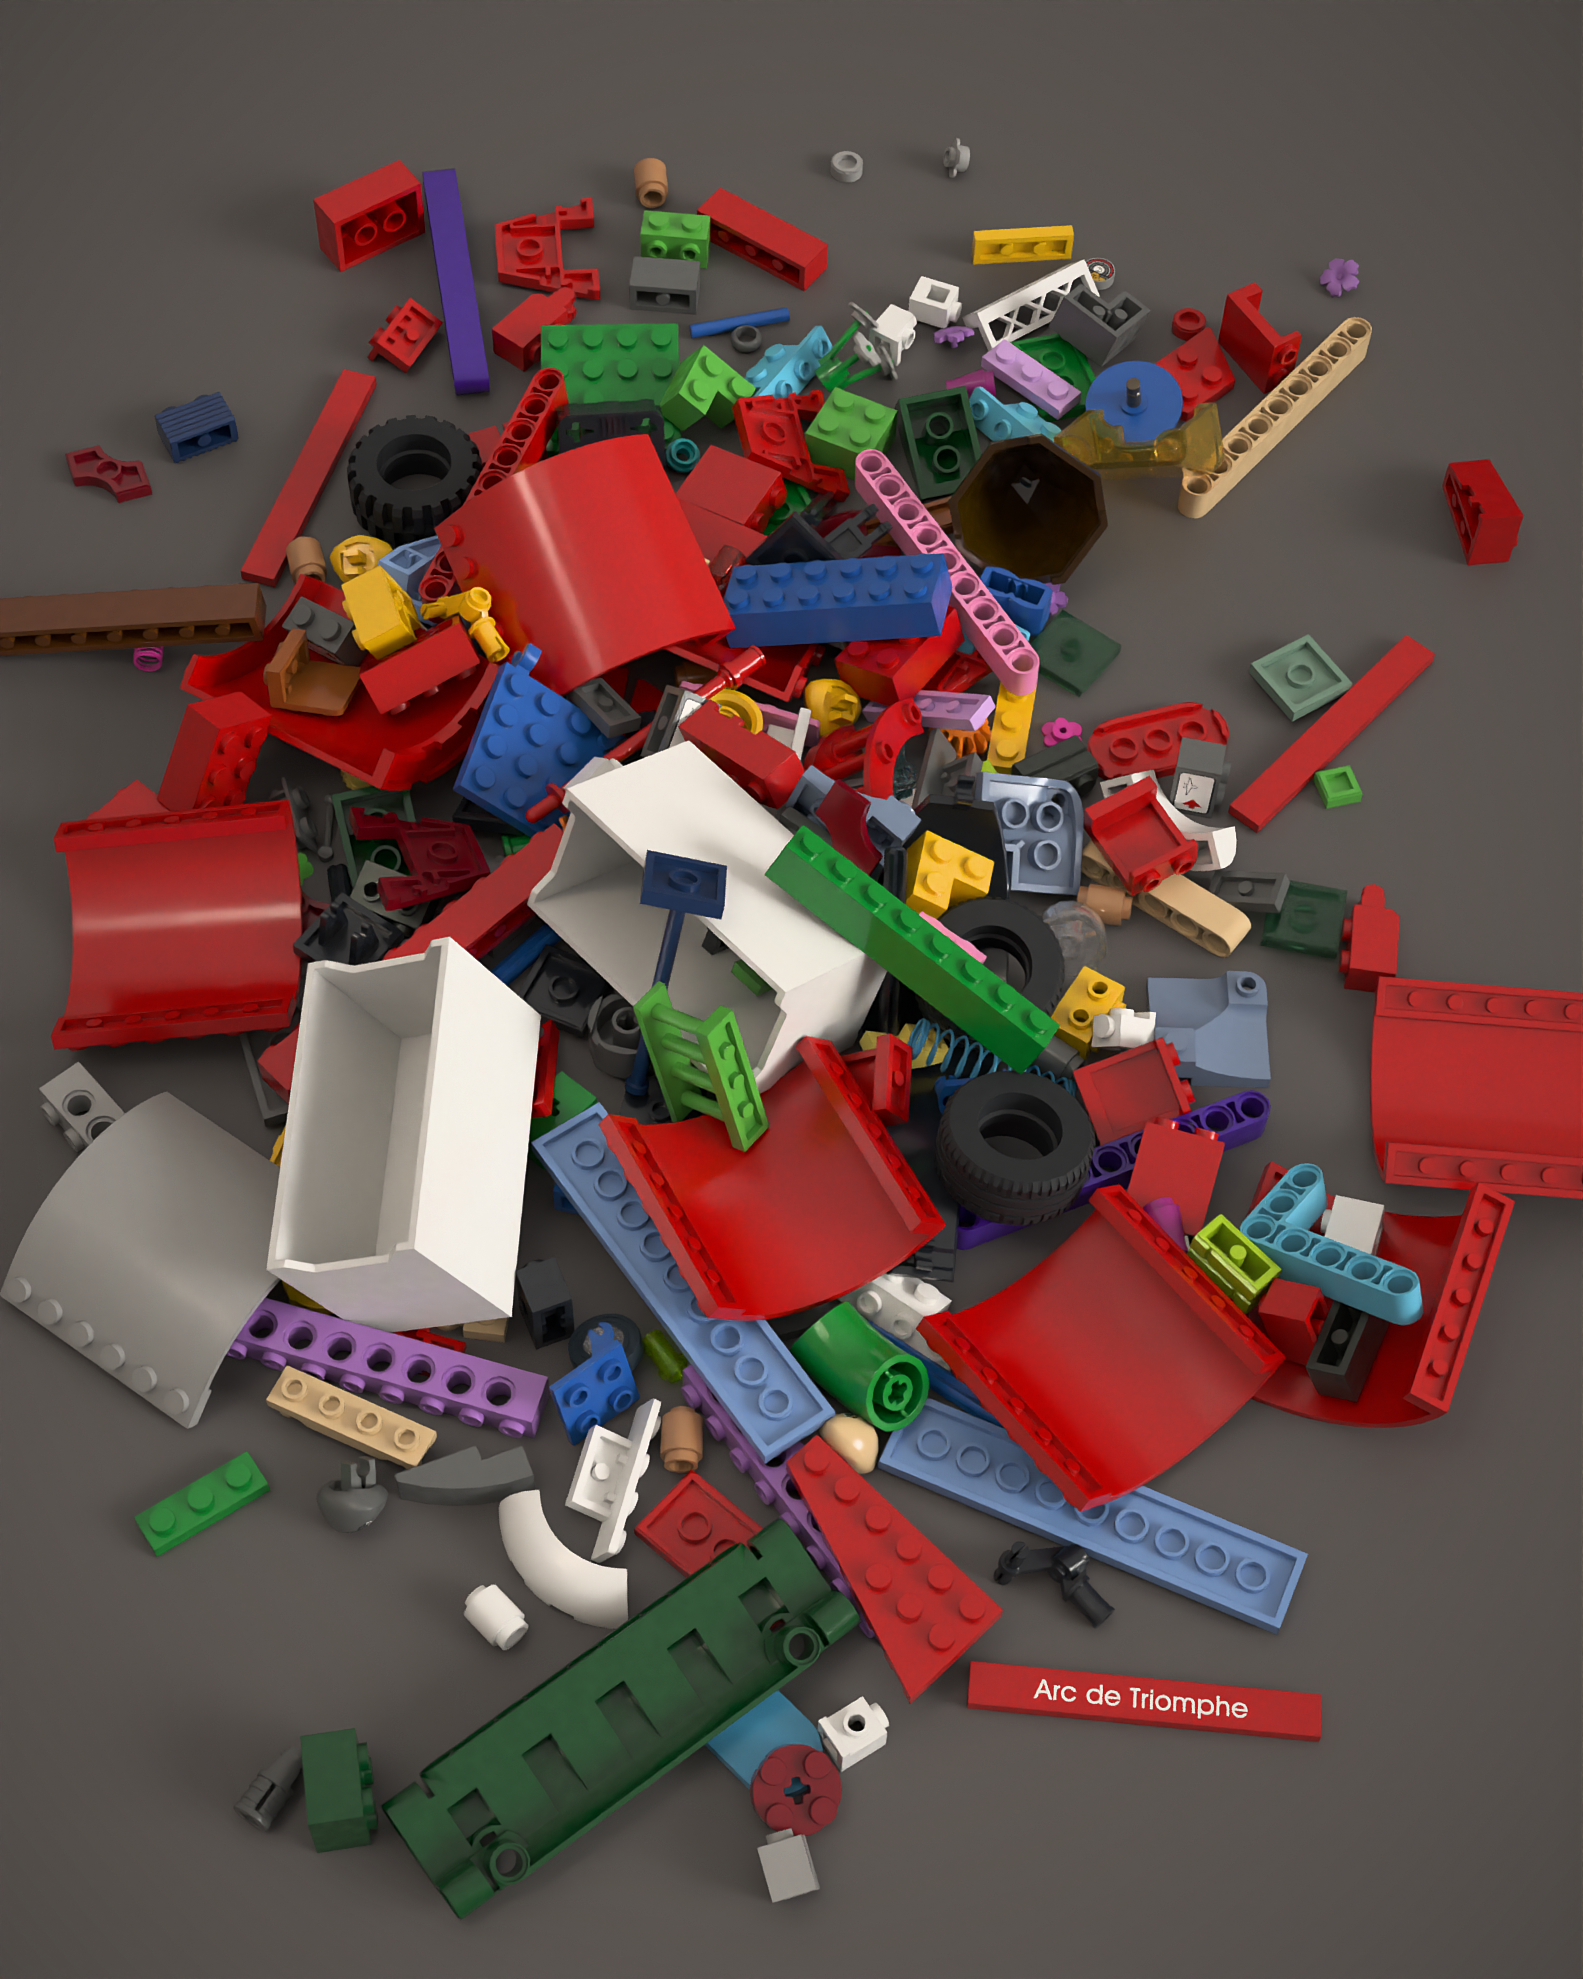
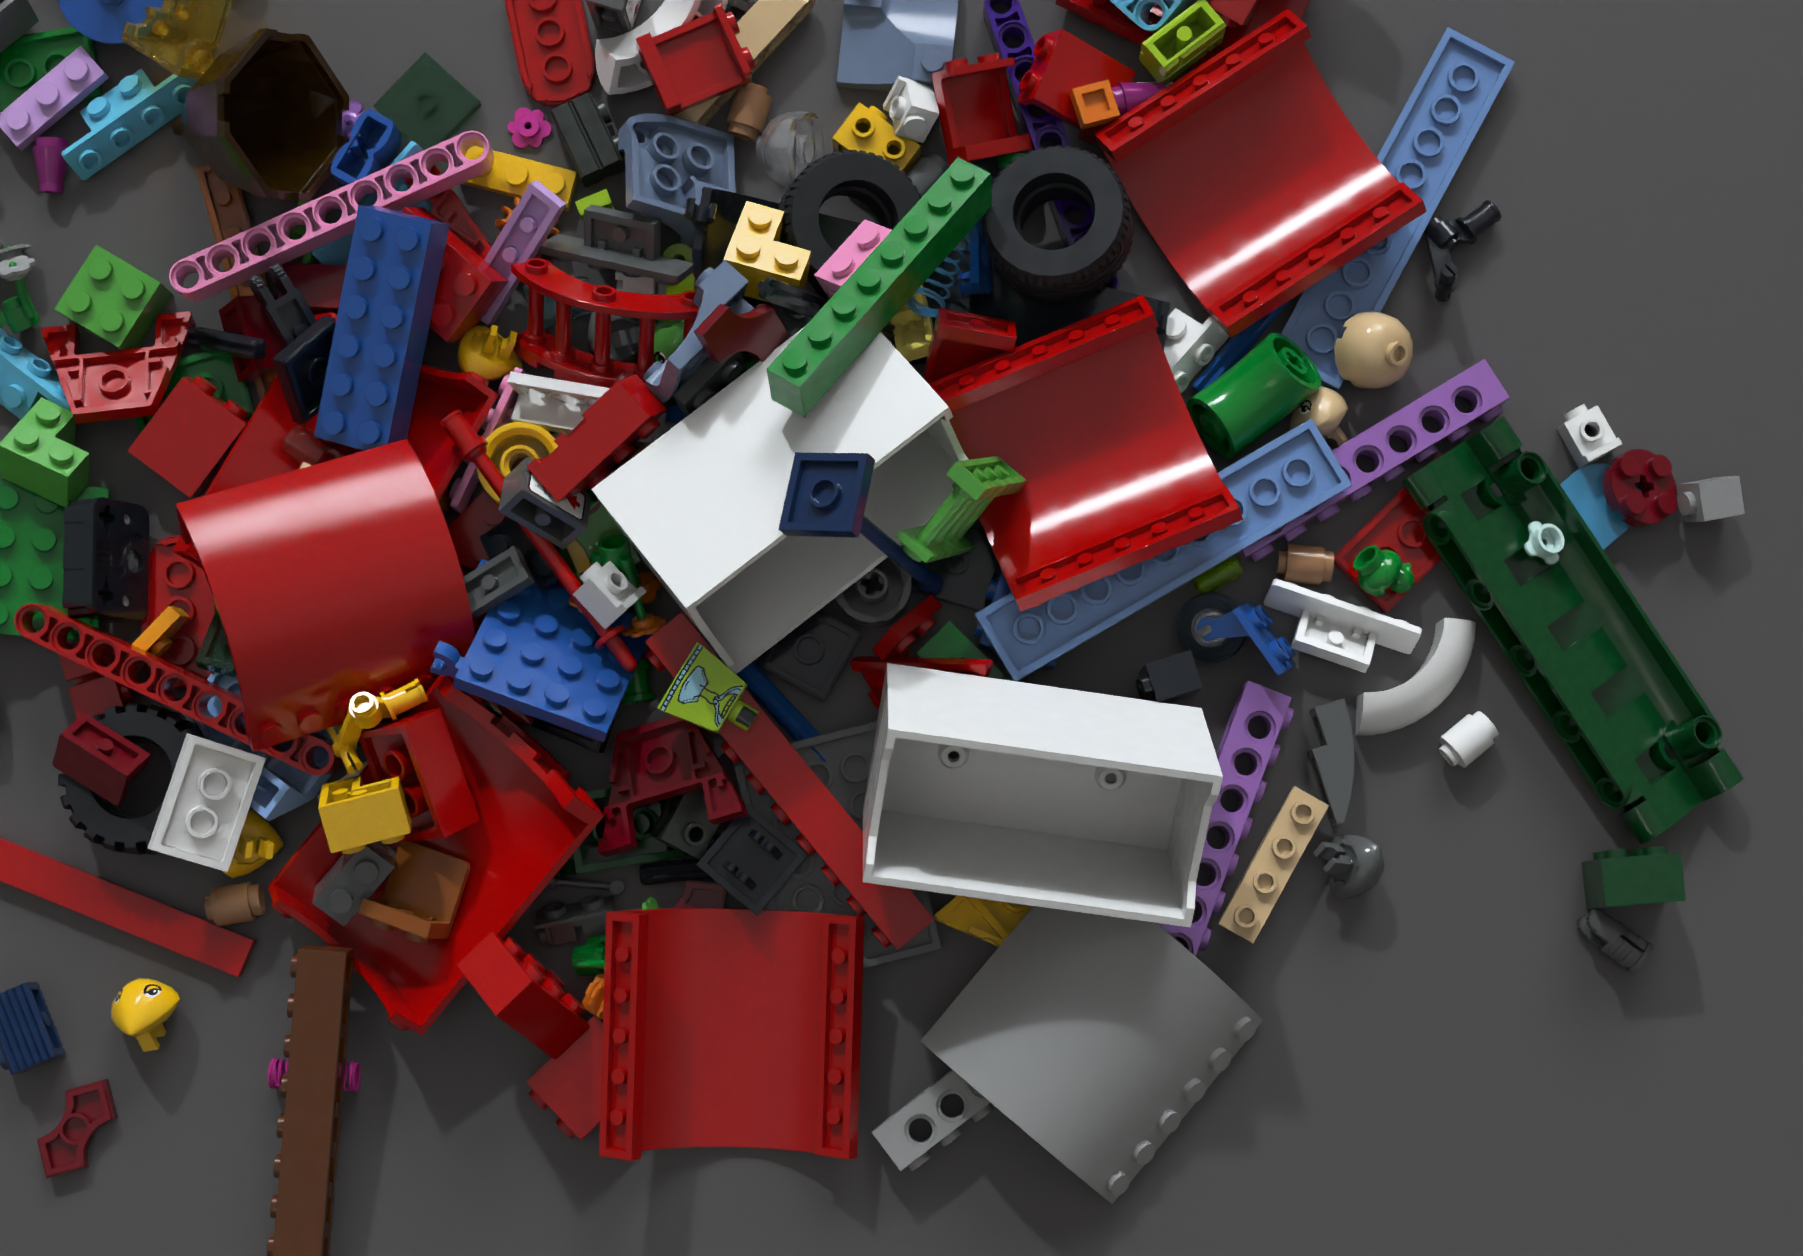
camera: 80 degrees left, 25 degrees up
(202, 1503) = (1338, 1005): green plate -> none
(211, 502) = (142, 1009): none -> yellow piece
(389, 511) = (206, 803): none -> white plate
(430, 433) = (99, 758): none -> dark red panel
(503, 868) = (708, 694): none -> lime torso
(583, 1059) = (901, 635): none -> red hinge
(679, 1504) = (1381, 570): none -> green animal
(682, 446) = (122, 477): teal plate -> none
(733, 1672) = (1544, 541): none -> light aqua plate
(900, 1580) = (1469, 377): red wing -> none
(925, 1486) = (1373, 350): none -> tan cylinder
(938, 440) = (134, 205): dark green slope -> none
(1144, 1701) = (1566, 188): red tile -> none
(1150, 1180) = (1094, 104): none -> orange plate

